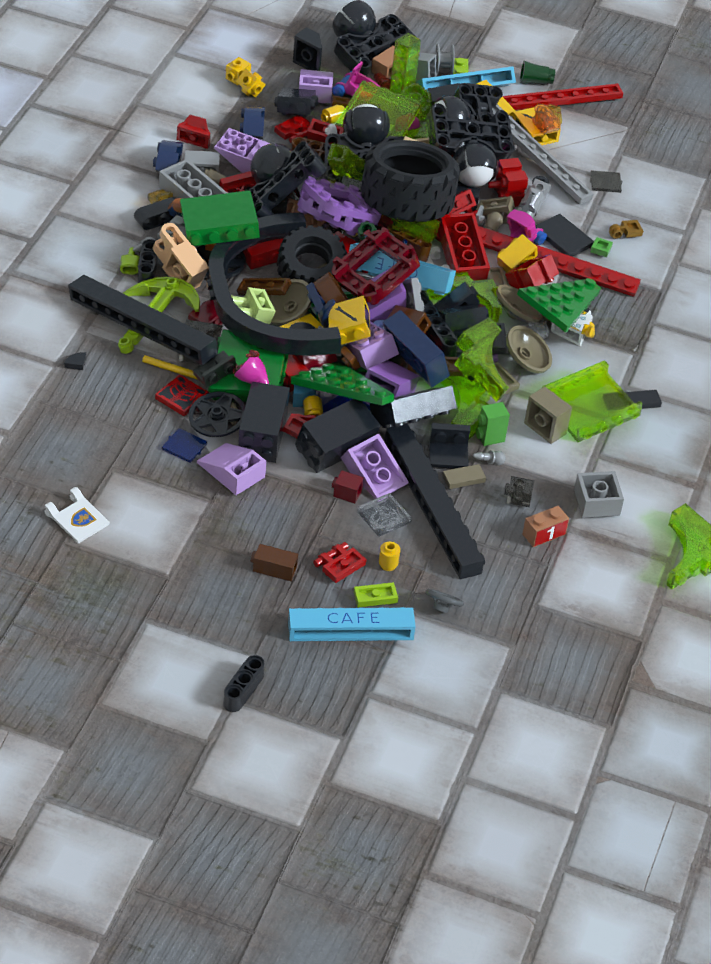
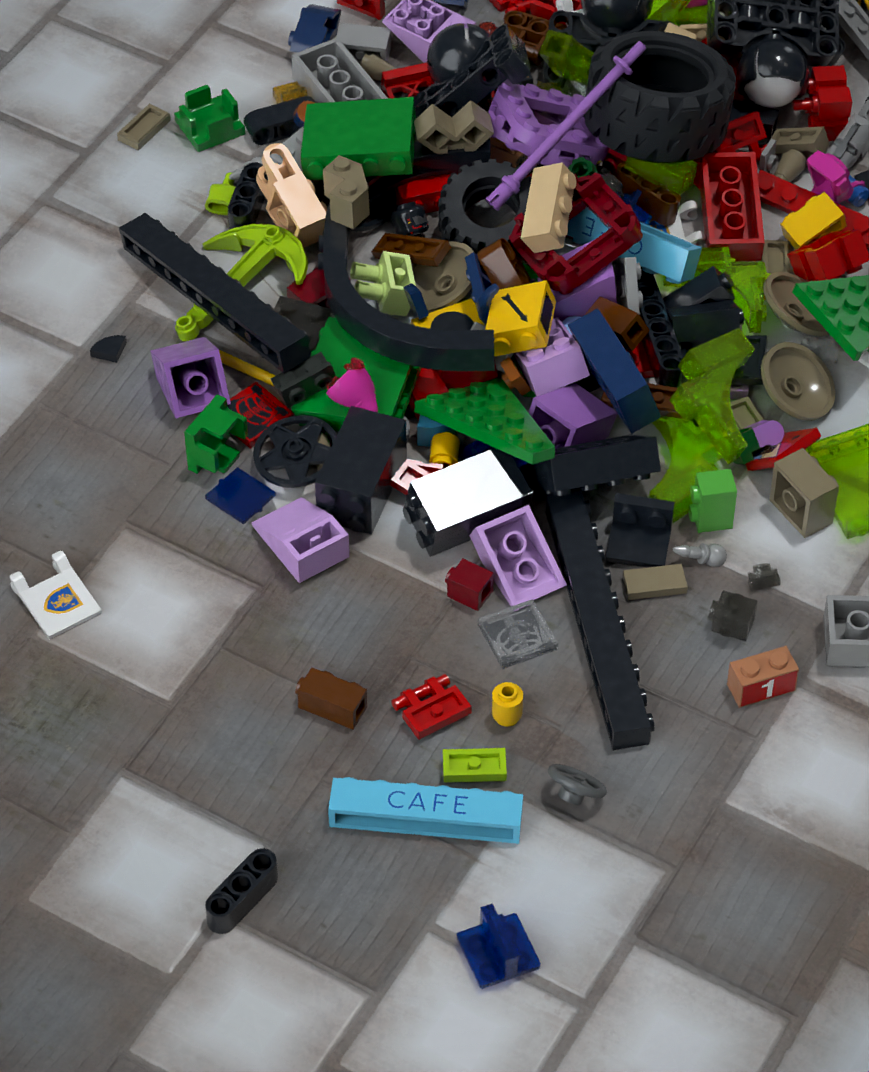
camera: 15 degrees right, 5 degrees up
(66, 223) = (143, 126): none -> dark tan tile
(110, 216) = (209, 120): none -> green panel
(137, 373) = (190, 375): none -> medium lavender slope
(159, 406) = (208, 434): none -> green panel
(222, 248) = (347, 191): none -> dark tan brick
(258, 268) = (409, 219): none -> black head
(276, 316) = (416, 301): none -> dark blue tile
(288, 208) = (465, 130): none -> dark tan brick
(326, 239) = (511, 183): none -> medium lavender bar
(356, 251) = (548, 207): none -> tan brick
(415, 702) = (497, 948): none -> clear blue bracket
(514, 382) = (760, 435): none -> leg
(526, 389) = (790, 443): none -> red tile
(531, 468) = (763, 577): none -> clear smoke plate

